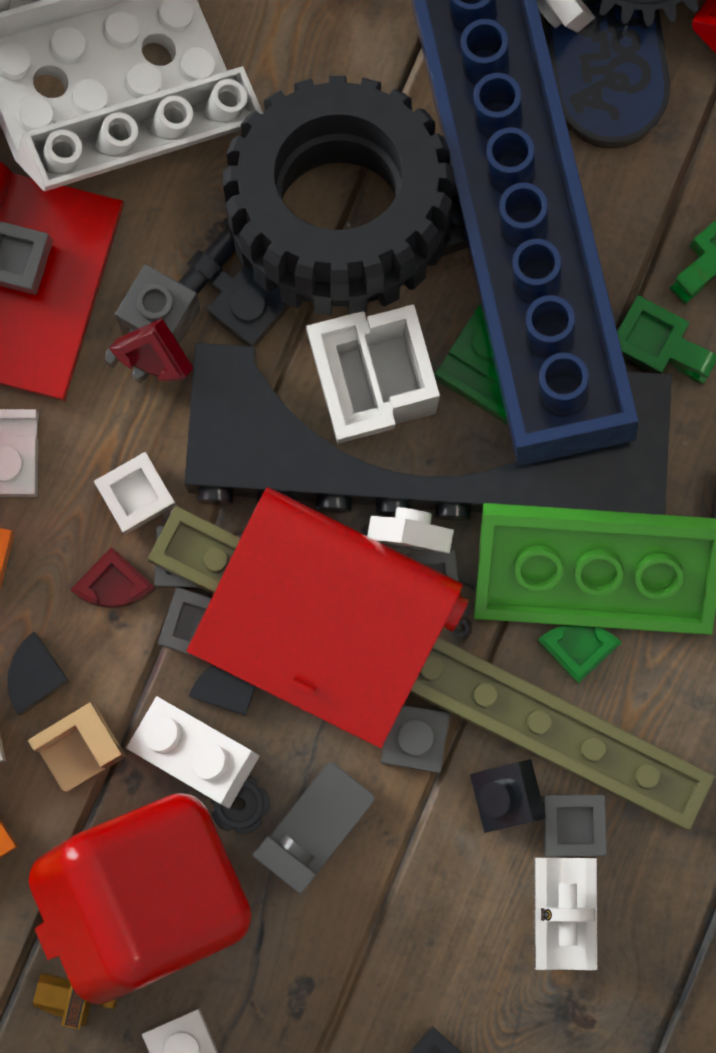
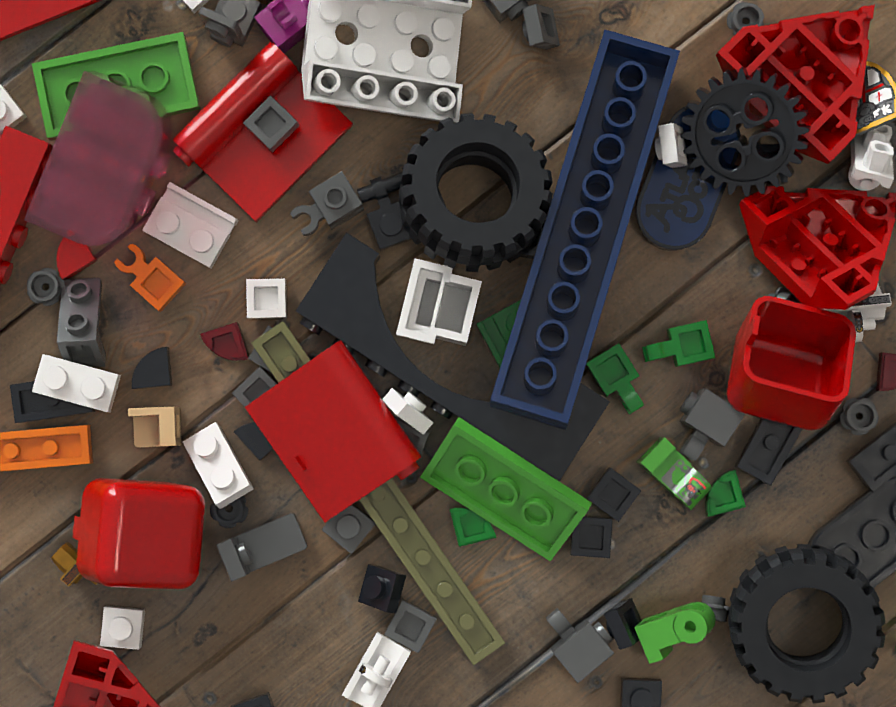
camera: 25 degrees right, 5 degrees up
(153, 351) = (319, 224): dark red tile -> none

